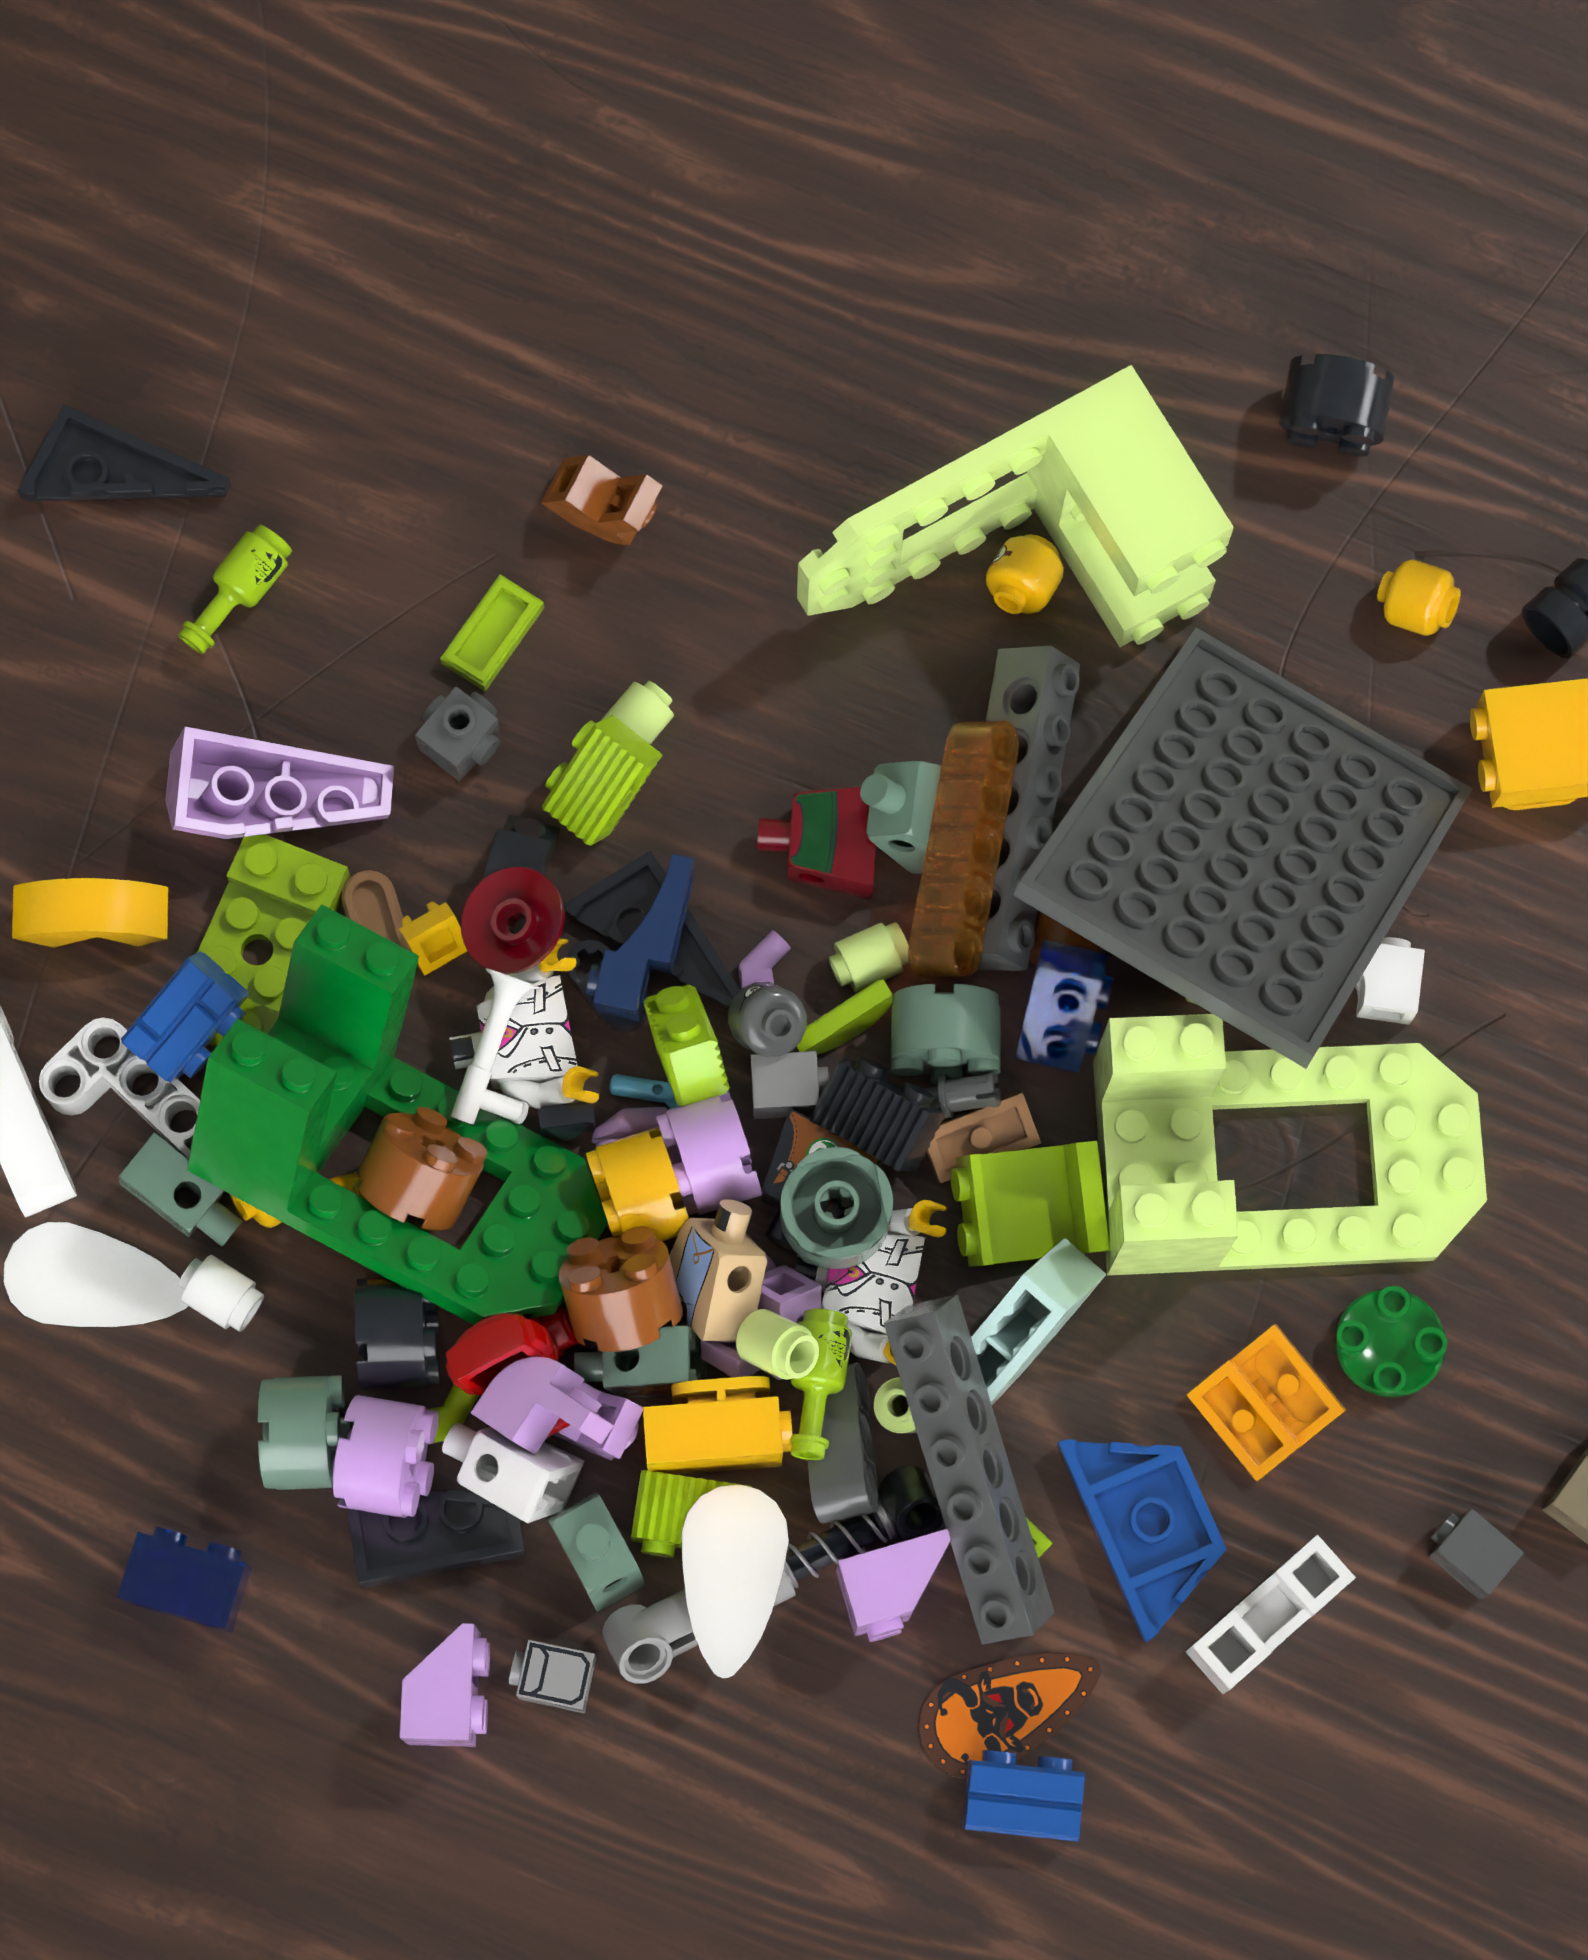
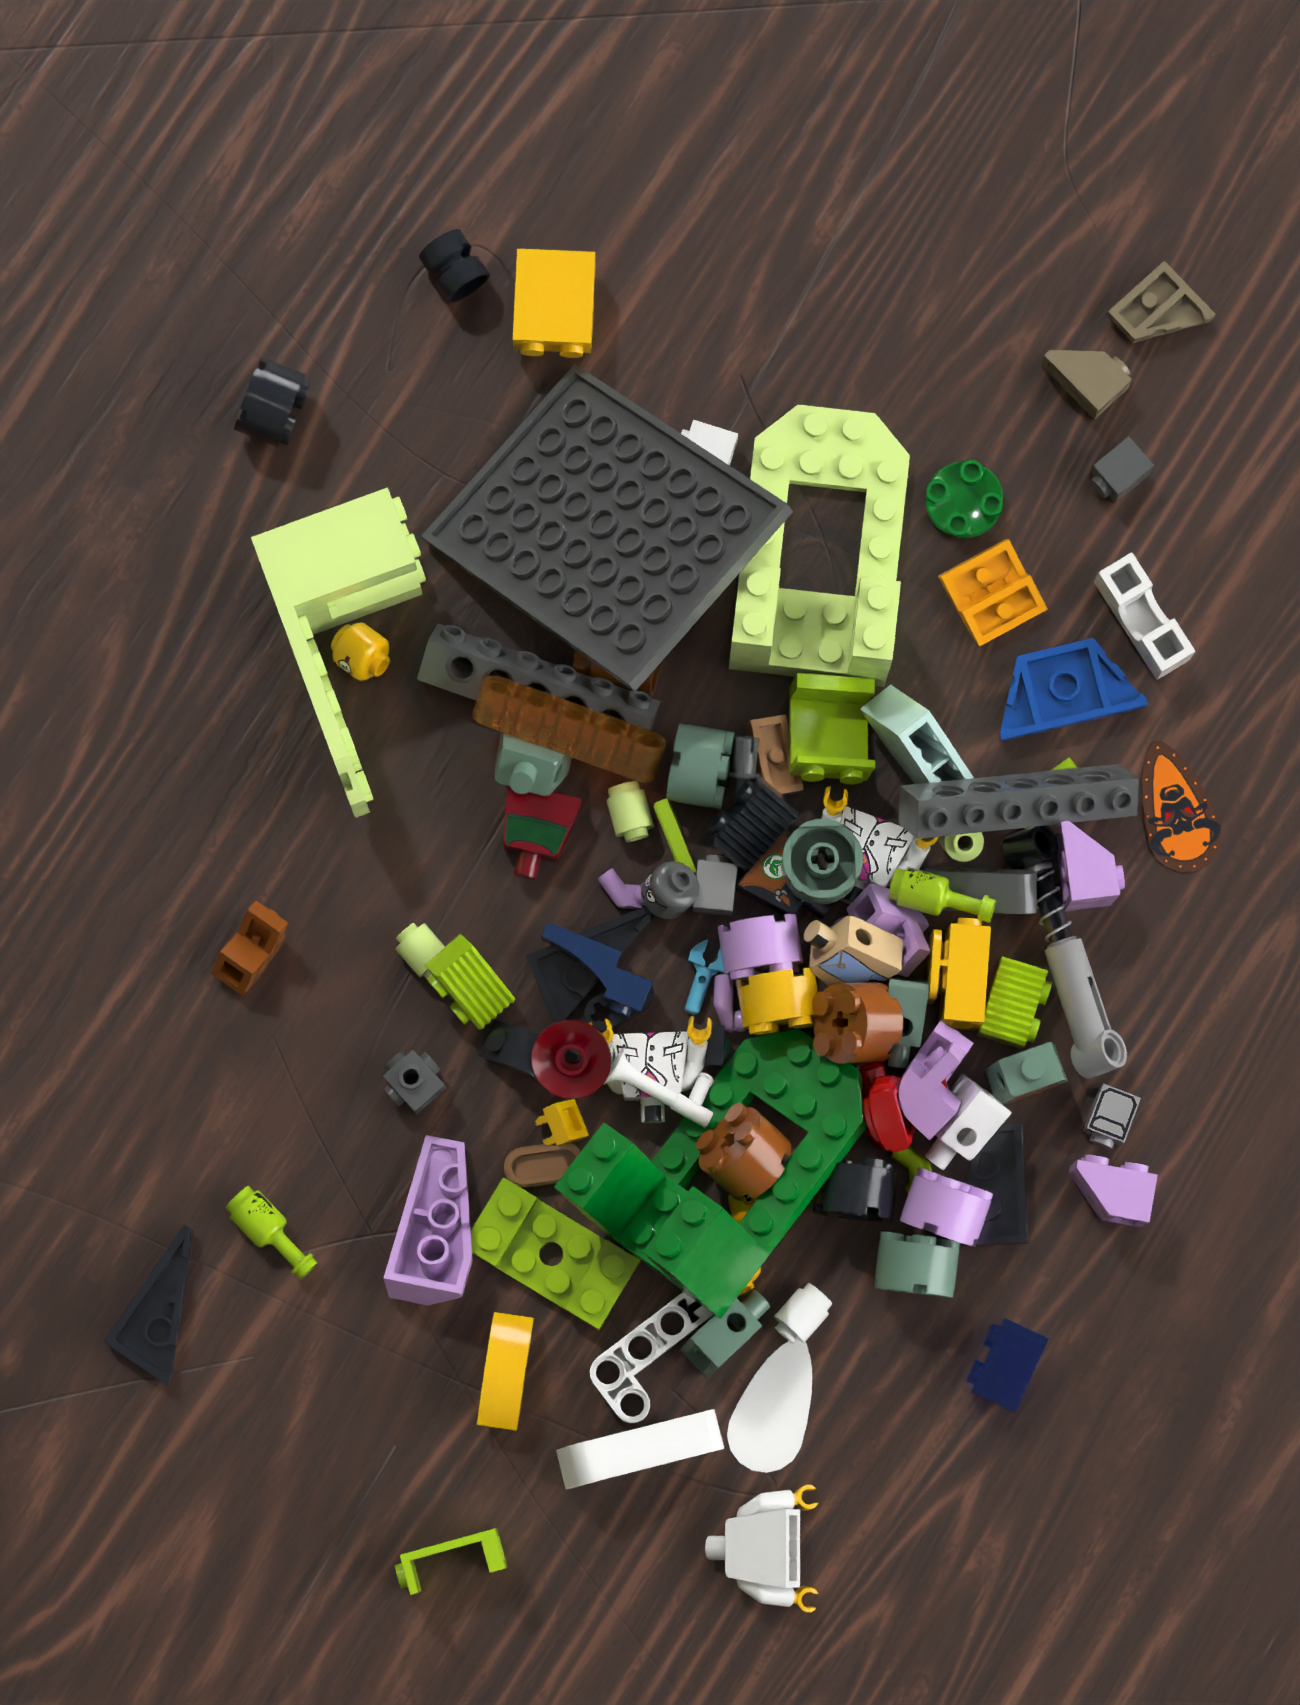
camera: 80 degrees left, 5 degrees up
(186, 1018) = (605, 1305): blue brick -> none
(492, 633) = (335, 1047): lime tile -> none
(686, 1045) = (680, 950): lime brick -> none
(732, 1571) = (1062, 977): white sticker -> none
(777, 1345) = (914, 918): yellowish green brick -> none
(1023, 1798) = (1242, 806): blue brick -> none
(1062, 1006) = (695, 681): clear blue brick -> none
(1419, 597) = (426, 373): yellow head -> none

